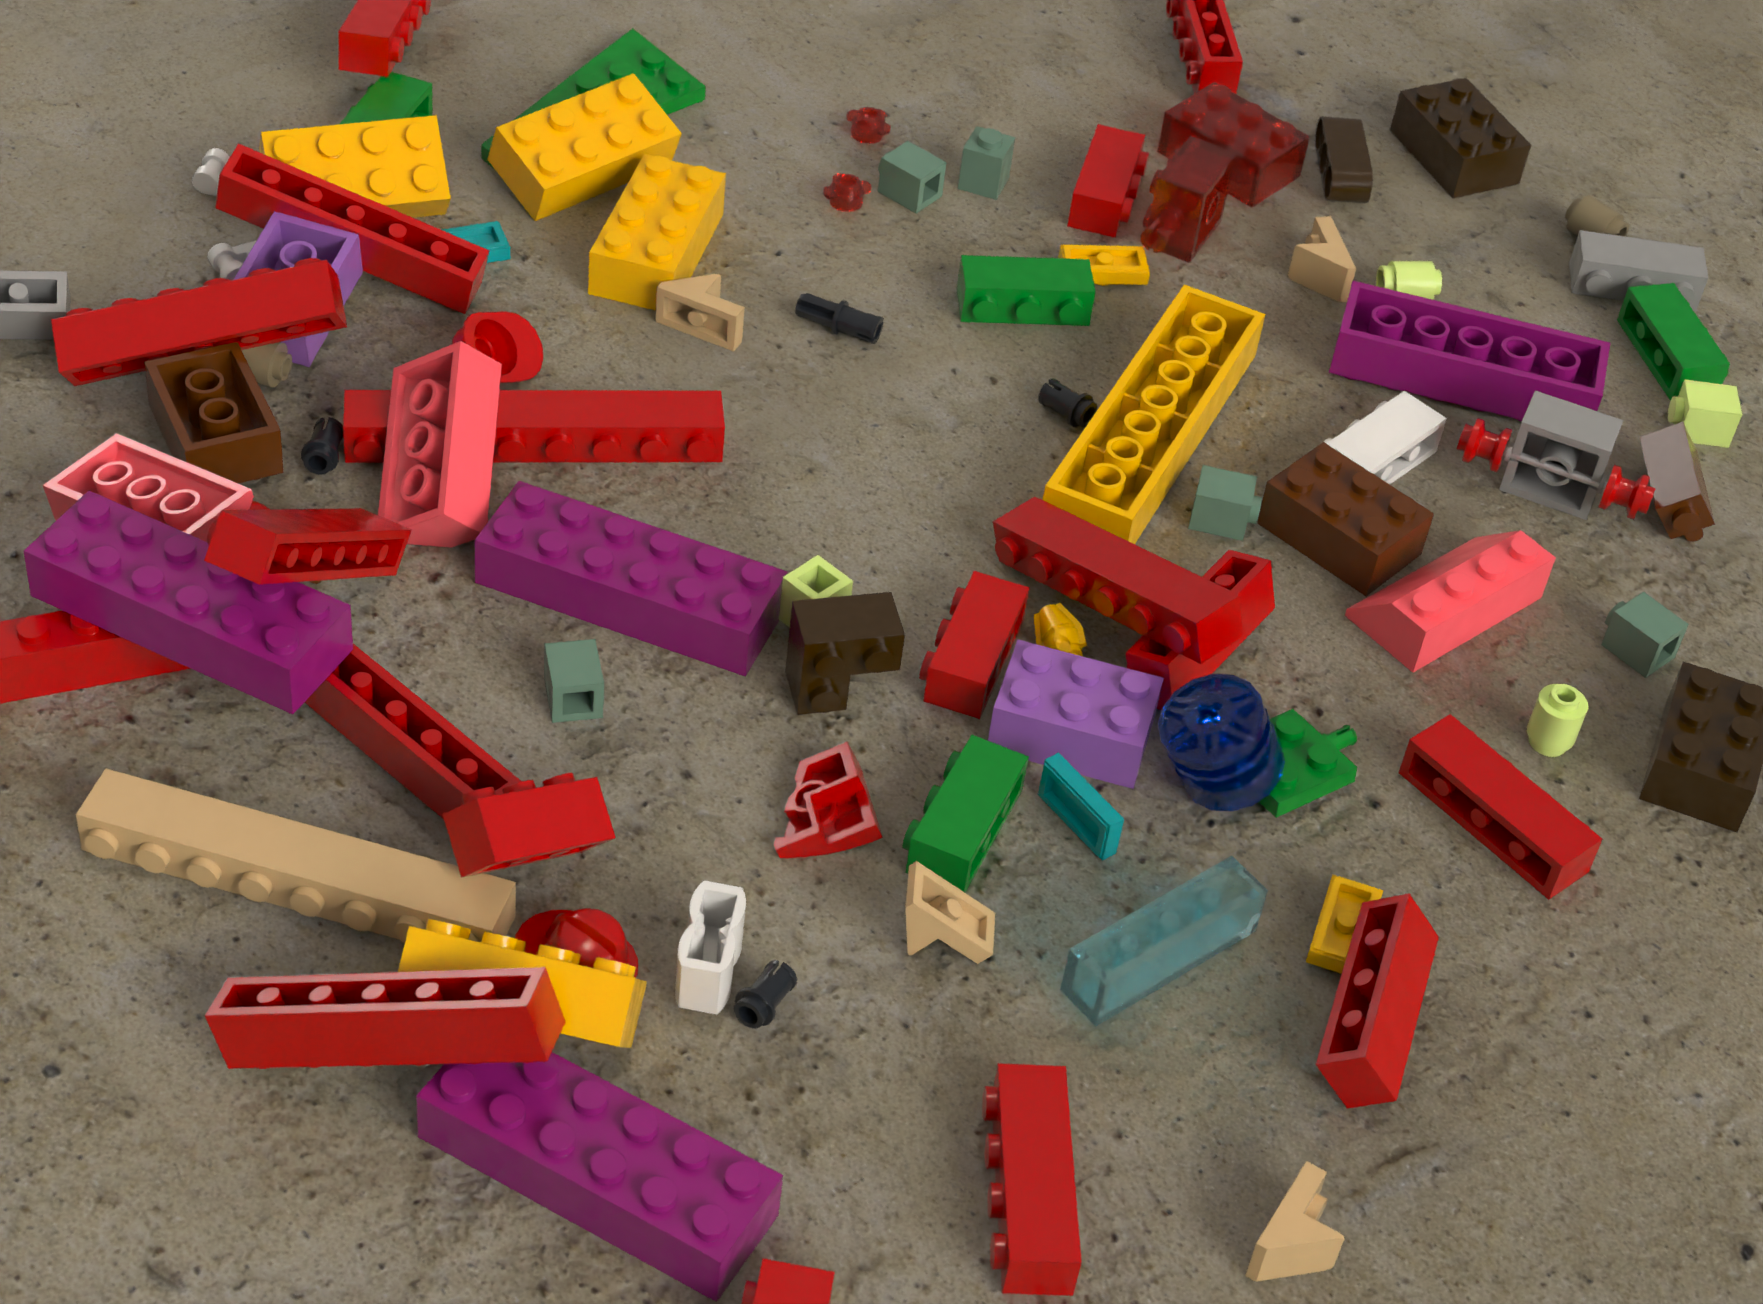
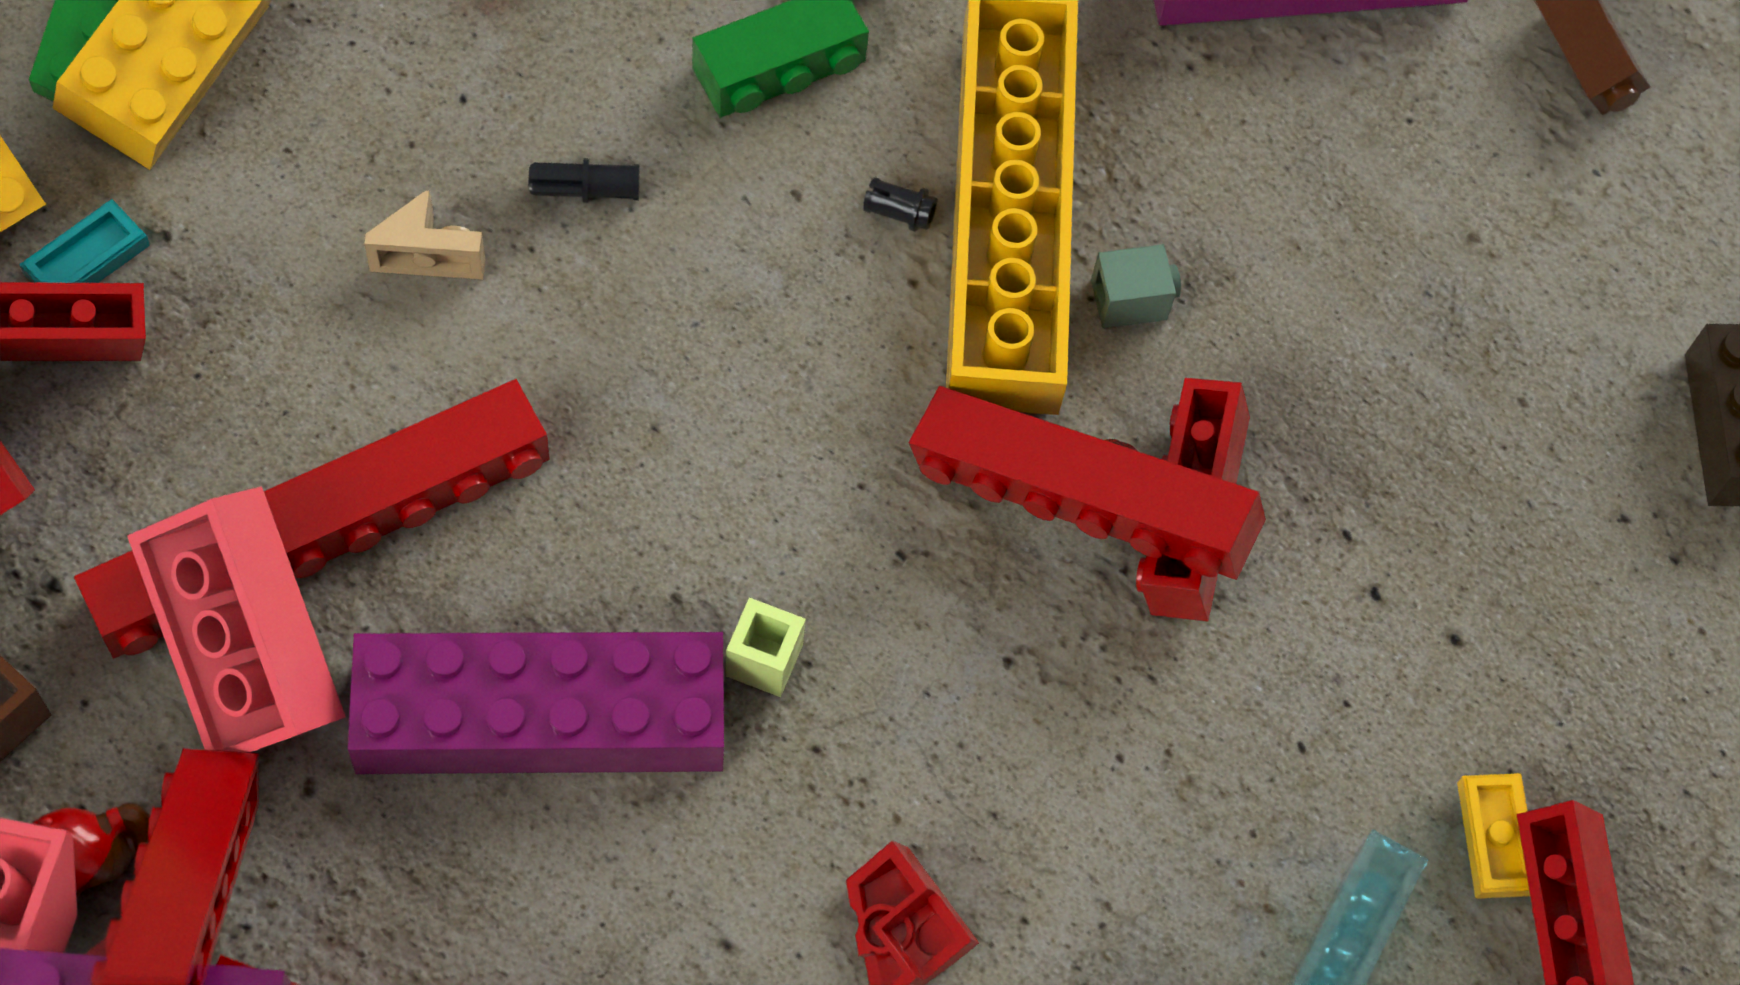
camera: 25 degrees left, 20 degrees up
(321, 451) = (84, 670): black pin -> none
(506, 340) = (216, 417): red piece -> none
(573, 680) = (546, 882): sand green brick -> none
(656, 230) = (314, 142): yellow brick -> none
(838, 640) = (832, 712): dark brown brick -> none
(966, 811) = (1054, 873): green brick -> none
(974, 644) = (958, 621): red brick -> none
(1059, 629) = (1044, 567): yellow piece -> none
(1076, 707) = (1110, 676): medium lavender brick -> none
(1080, 806) = (1168, 804): teal tile -> none
(1221, 742) = (1298, 701): clear blue wheel -> none
(1311, 763) = (1345, 634): green plate -> none
(1344, 518) = (1273, 253): reddish brown brick -> none
(1392, 437) = (1261, 128): white brick -> none
(1455, 597) = (1420, 310): coral slope -> none
(1500, 806) = (1589, 596): red brick -> none
(1556, 719) = (1602, 451): yellowish green brick -> none
(1559, 458) = (1469, 71): light grey brick -> none
(1643, 634) = (1637, 281): sand green brick -> none

